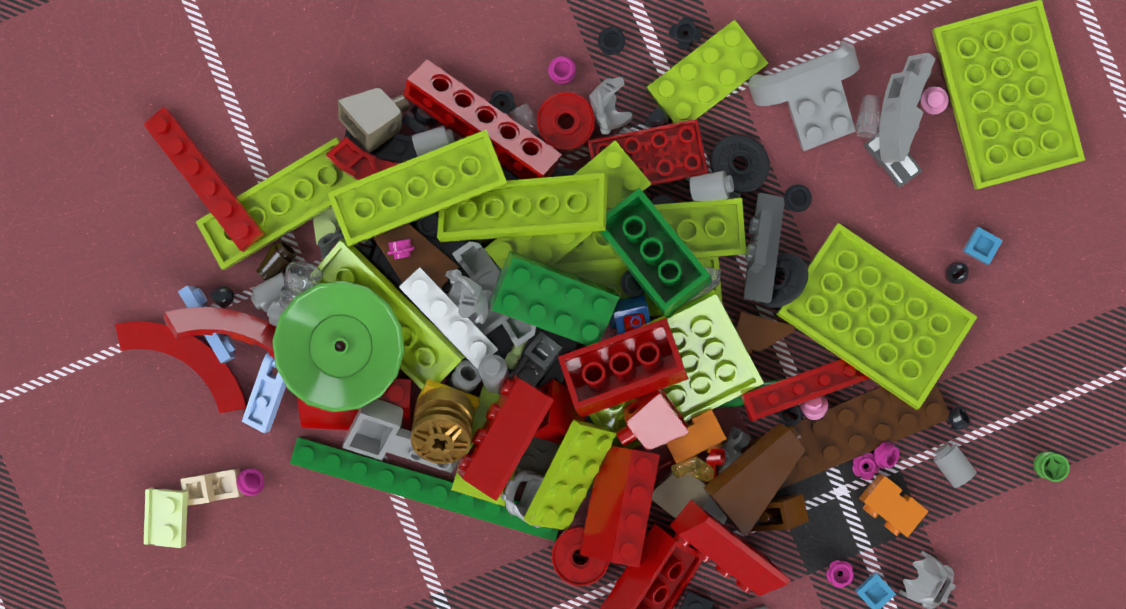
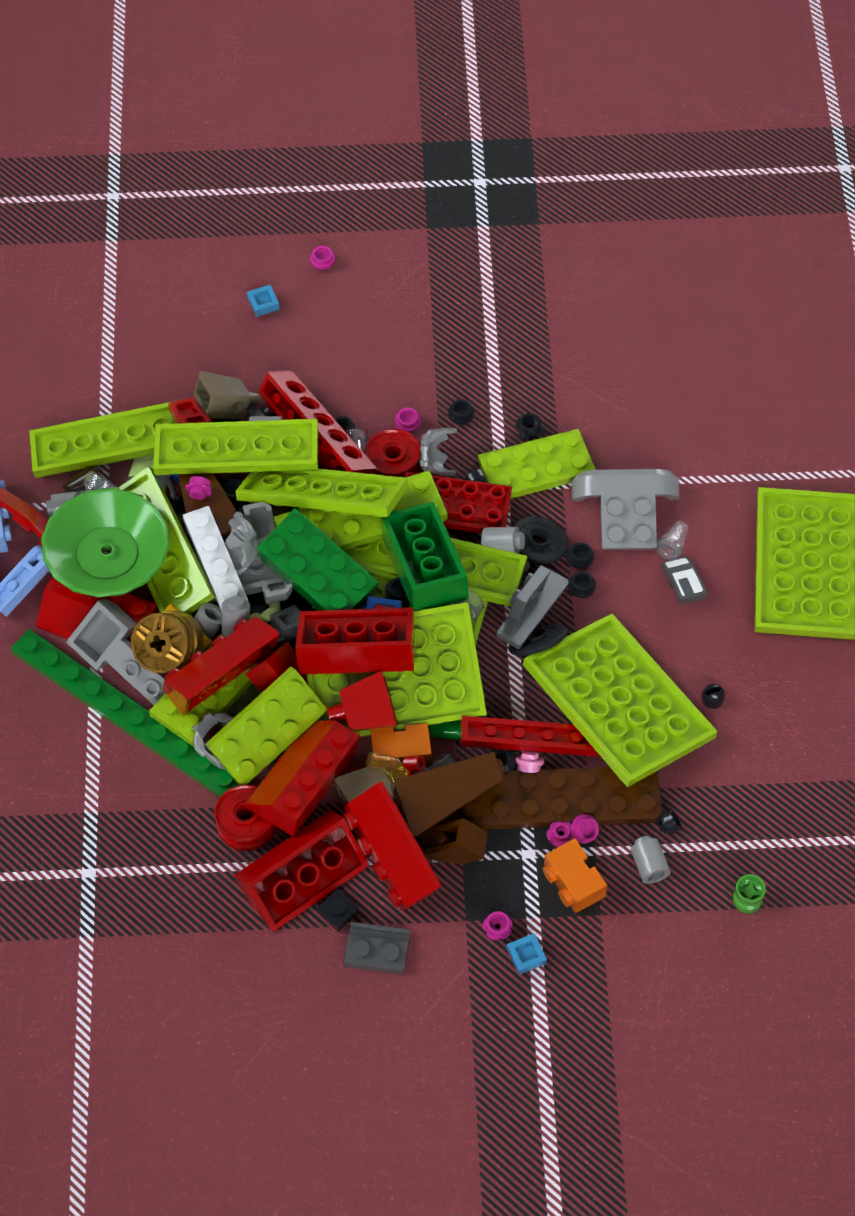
camera: 20 degrees right, 30 degrees down
(204, 179) = (54, 401): red plate -> none
(222, 296) = (23, 493): black hinge -> none
(760, 332) = (504, 680): reddish brown slope -> none
(785, 166) = (580, 555): none -> black plate
(899, 112) = (705, 535): light grey slope -> none
(929, 582) = (578, 956): light grey helmet -> none
(934, 100) = (739, 547): bright pink plate -> none
(982, 245) = (745, 677): dark azure plate -> none

